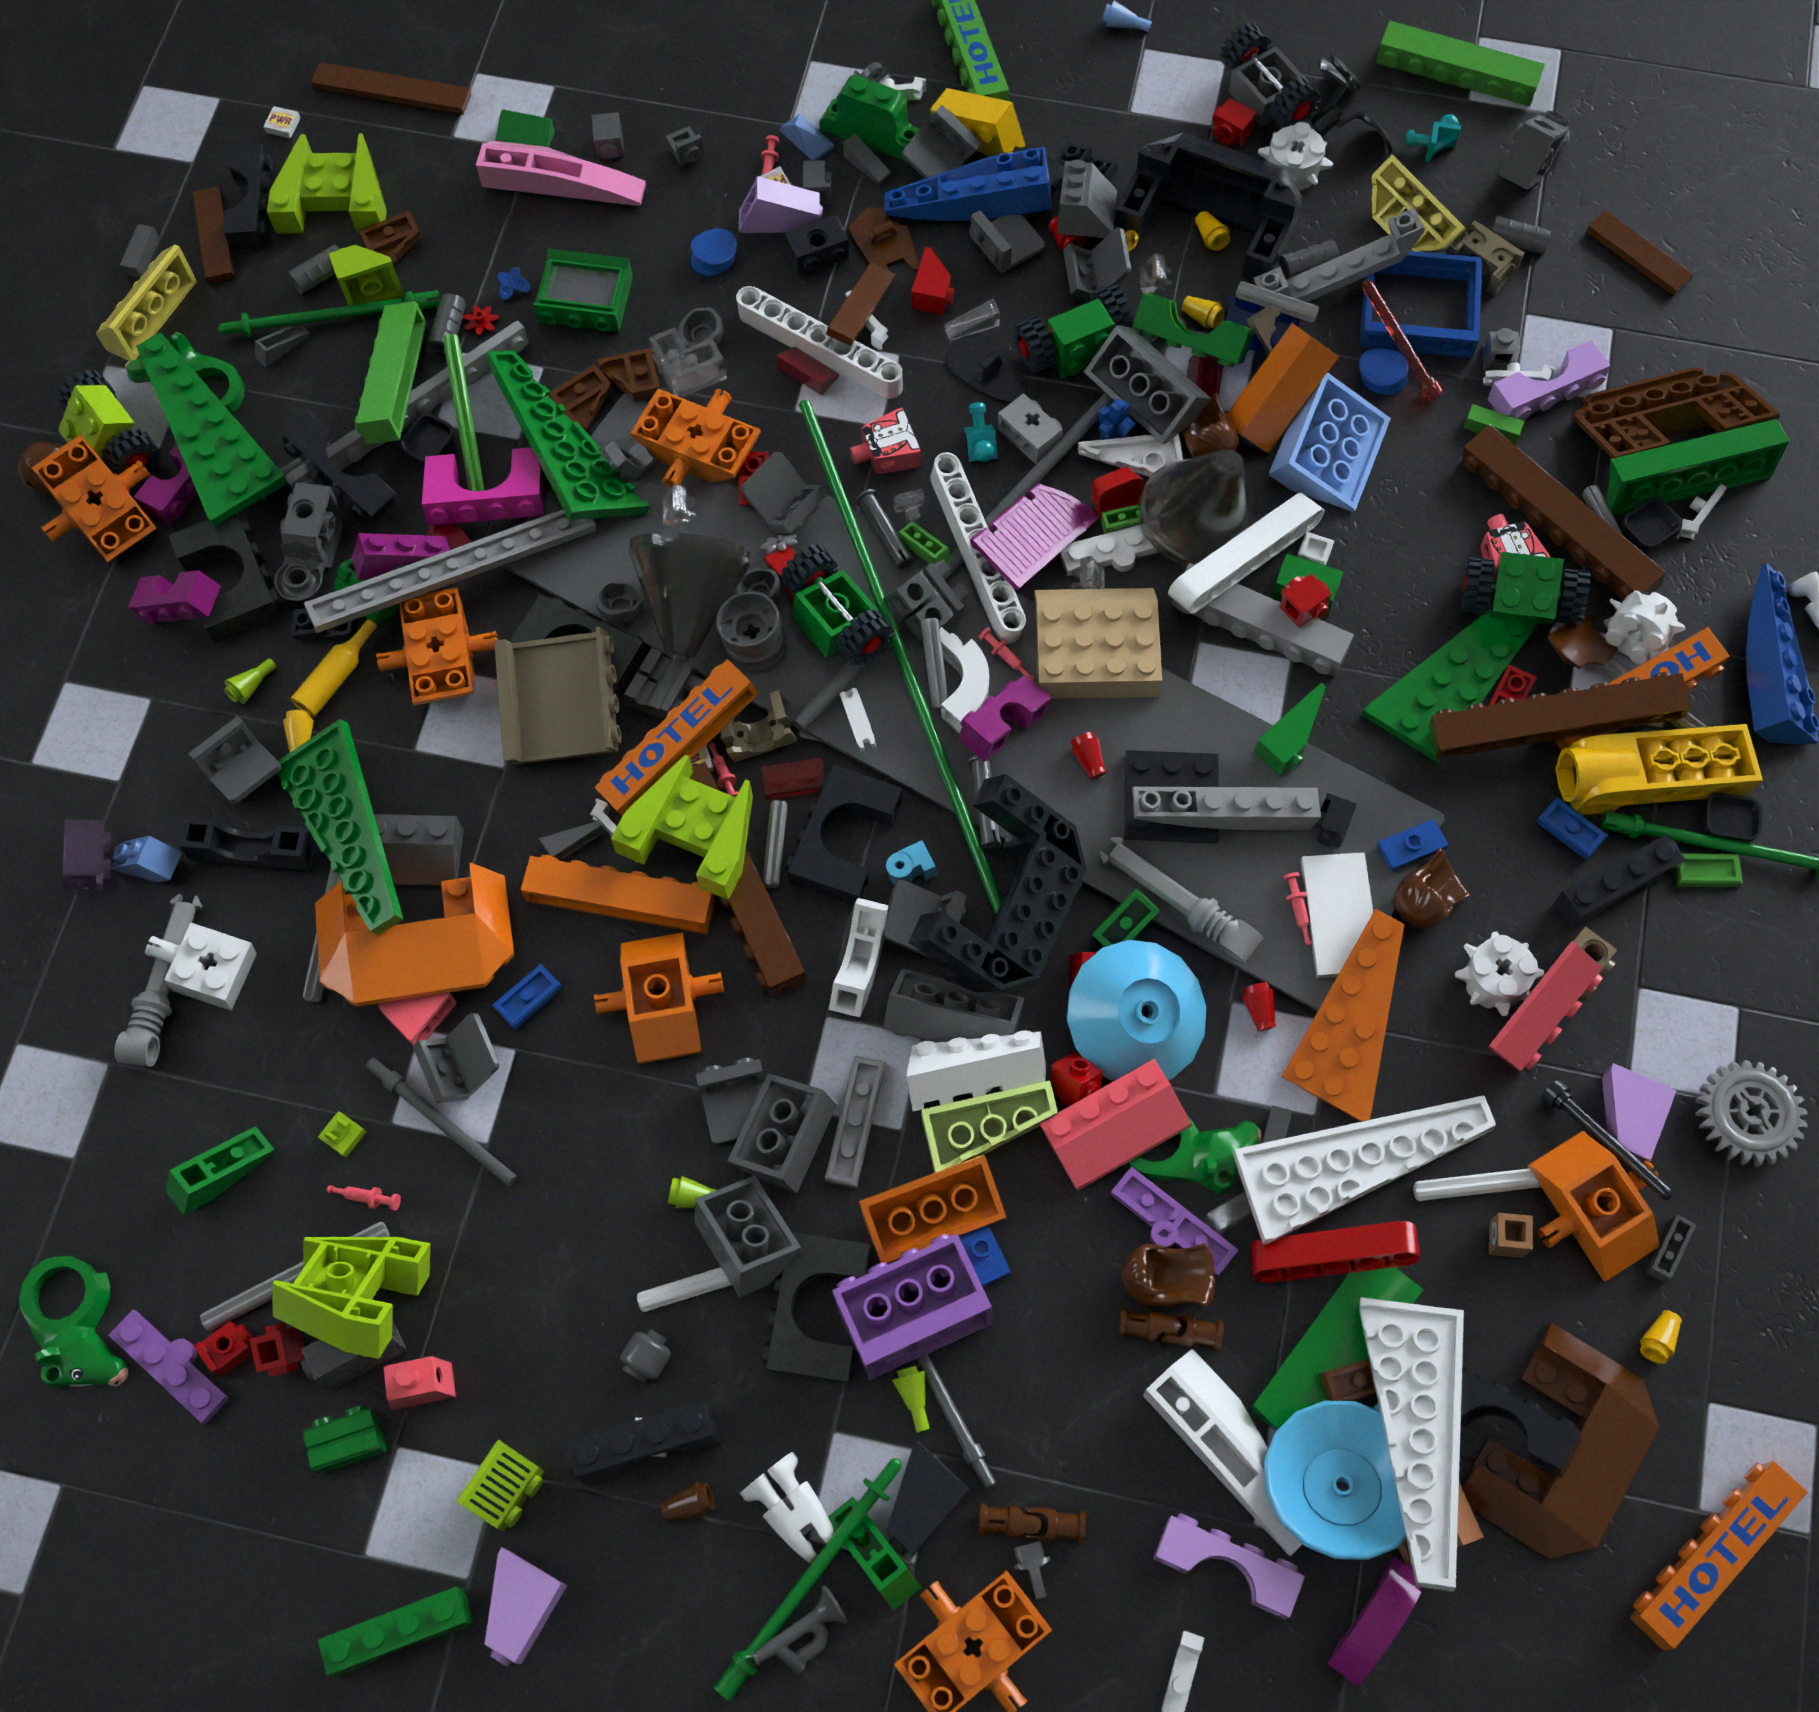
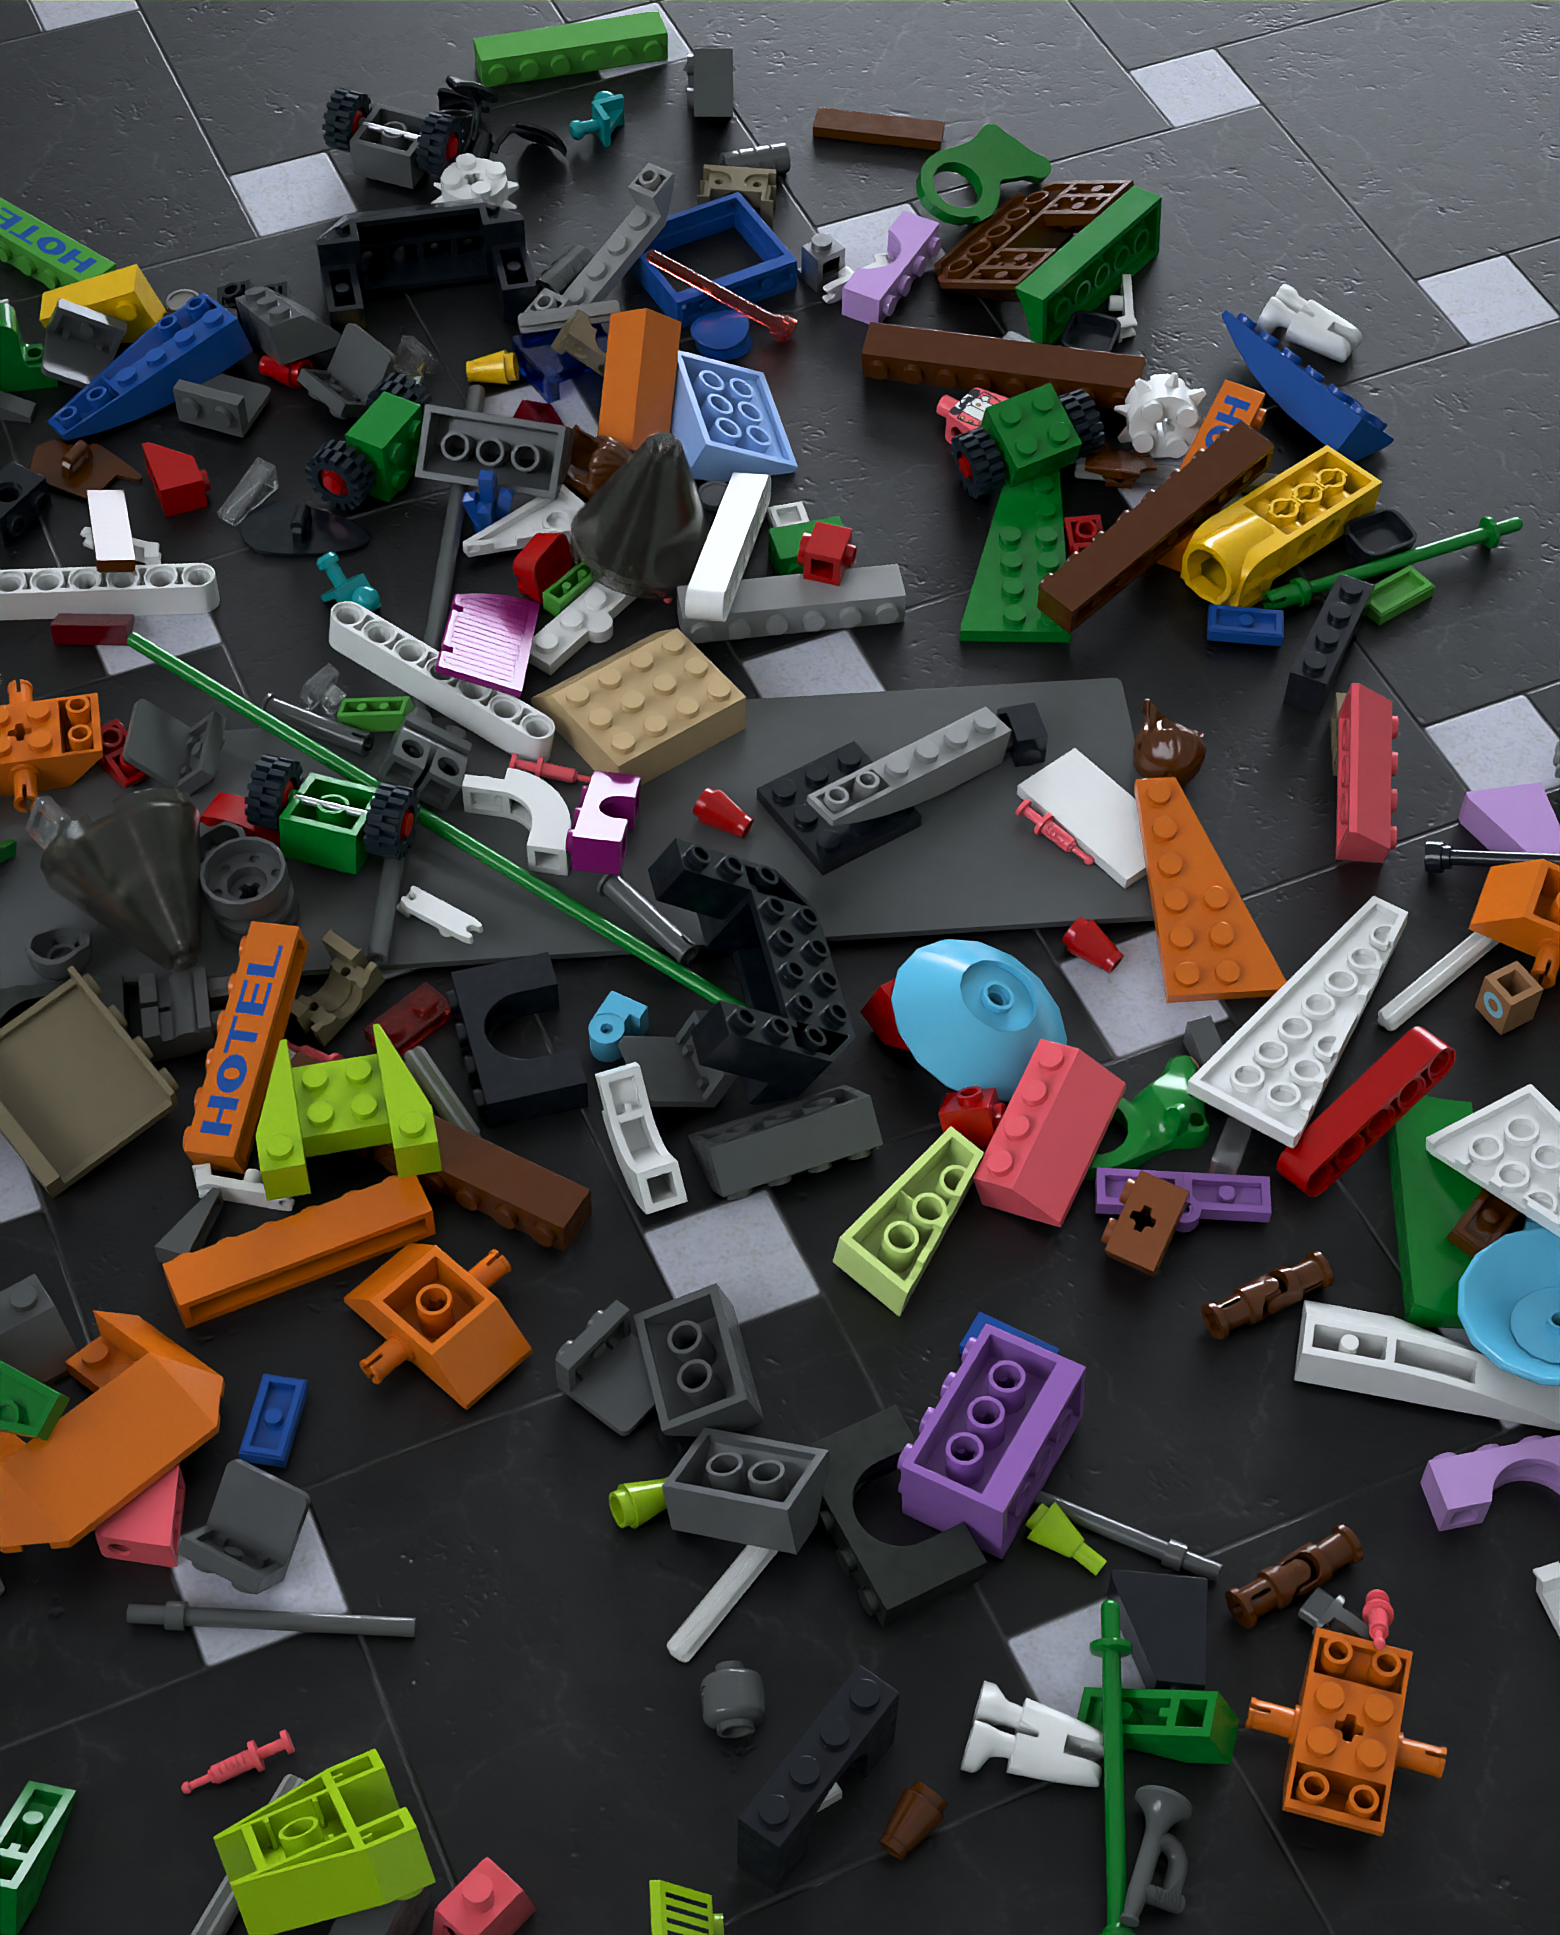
camera: 40 degrees left, 15 degrees down
(342, 1134) = (154, 1715): lime tile -> none
(780, 543) = (205, 797): light grey plant -> none
(855, 1122) = (766, 1315): light grey tile -> none
(888, 444) = (252, 647): torso -> none
(932, 1206) = (926, 1335): orange slope -> none
(934, 661) = (484, 812): light grey axle -> none
(974, 1066) = (856, 1164): white wedge -> none
(1029, 427) = (397, 557): light grey brick -> none
(1040, 138) = (179, 298): none -> light grey piece
(1057, 1588) = (1378, 1616): none -> coral piece
(1090, 574) = (577, 656): clear tile -> none
(1120, 17) = (182, 156): light blue cone -> none
(1126, 919) = (894, 935): green brick -> none
(1145, 1227) = (1166, 1206): none -> dark orange brick
(1160, 318) = (548, 374): green arch -> none
(1170, 1276) = (1225, 1242): reddish brown piece -> none
(1203, 915) = (969, 889): light grey piece -> none
(1212, 231) = (442, 296): yellow cone -> none
(1233, 123) = (382, 190): red brick -> none
(1278, 496) = (712, 494): none -> light grey piece
(1286, 740) = (914, 684): green slope -> none
(1398, 191) = (607, 172): light yellow wedge -> none
(1412, 845) = (1112, 718): blue plate -> none
(1481, 417) = (852, 330): bright green piece -> none
(1511, 960) = (1292, 780): white brick -> none
(1693, 329) = (986, 163): none -> green animal

